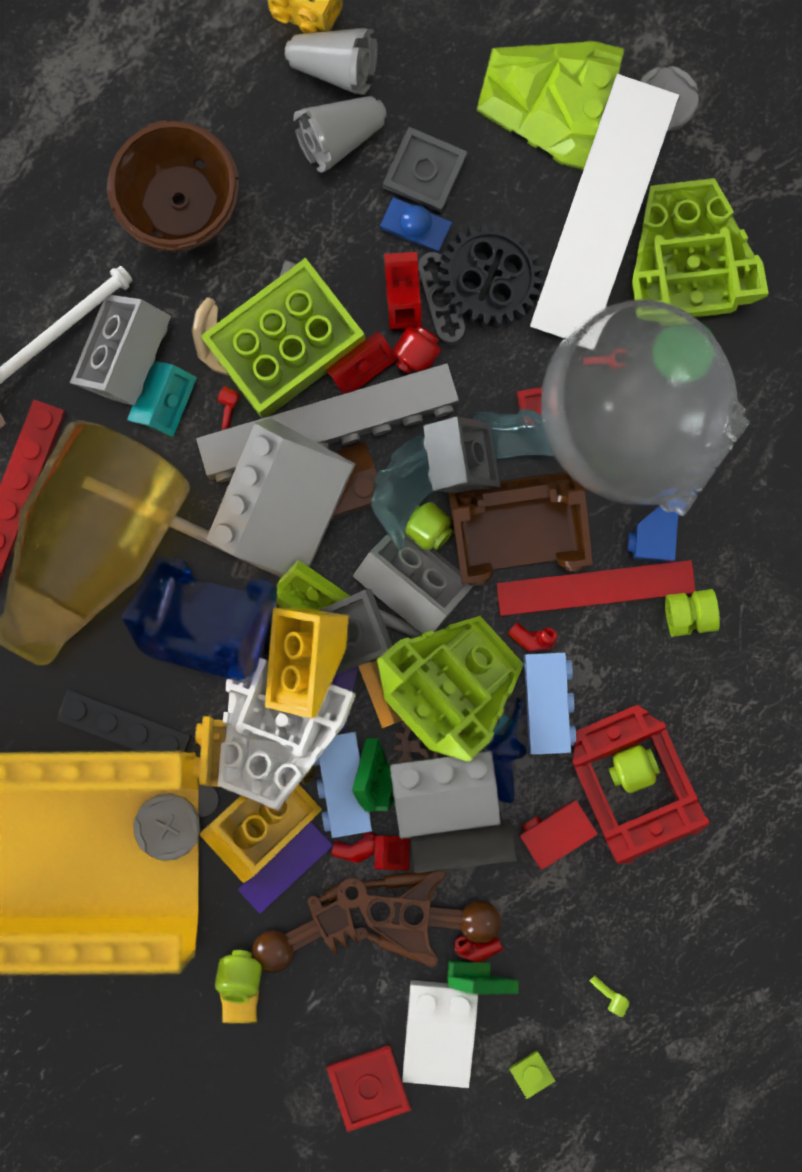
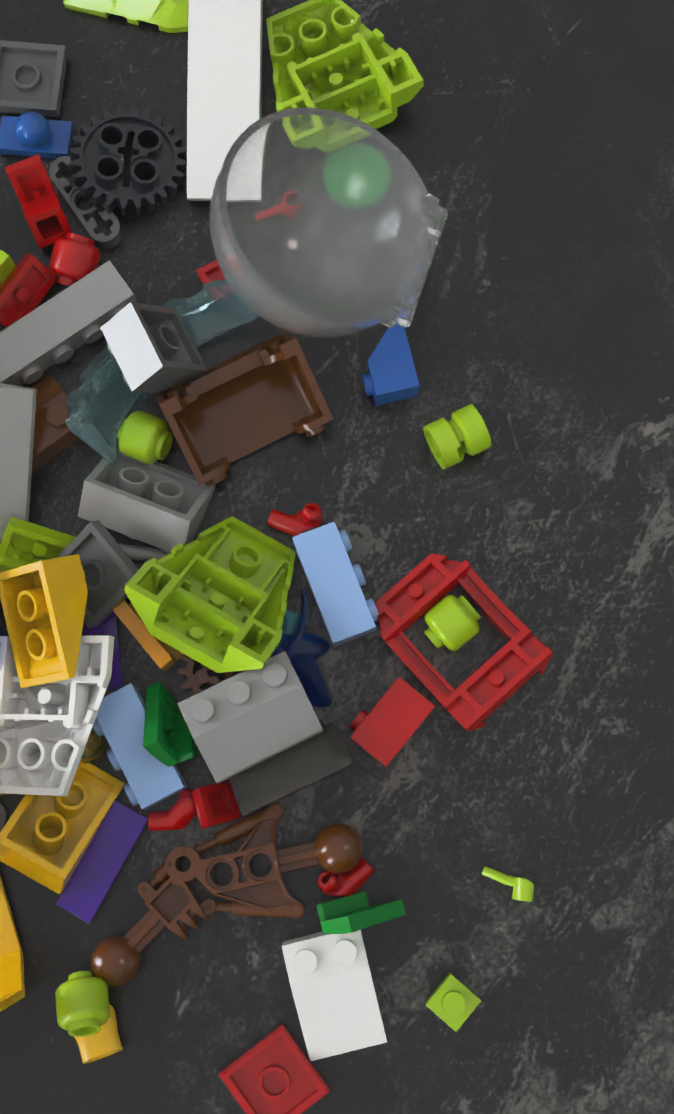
camera: 20 degrees left, 5 degrees down
(595, 588) = (344, 447): red tile -> none

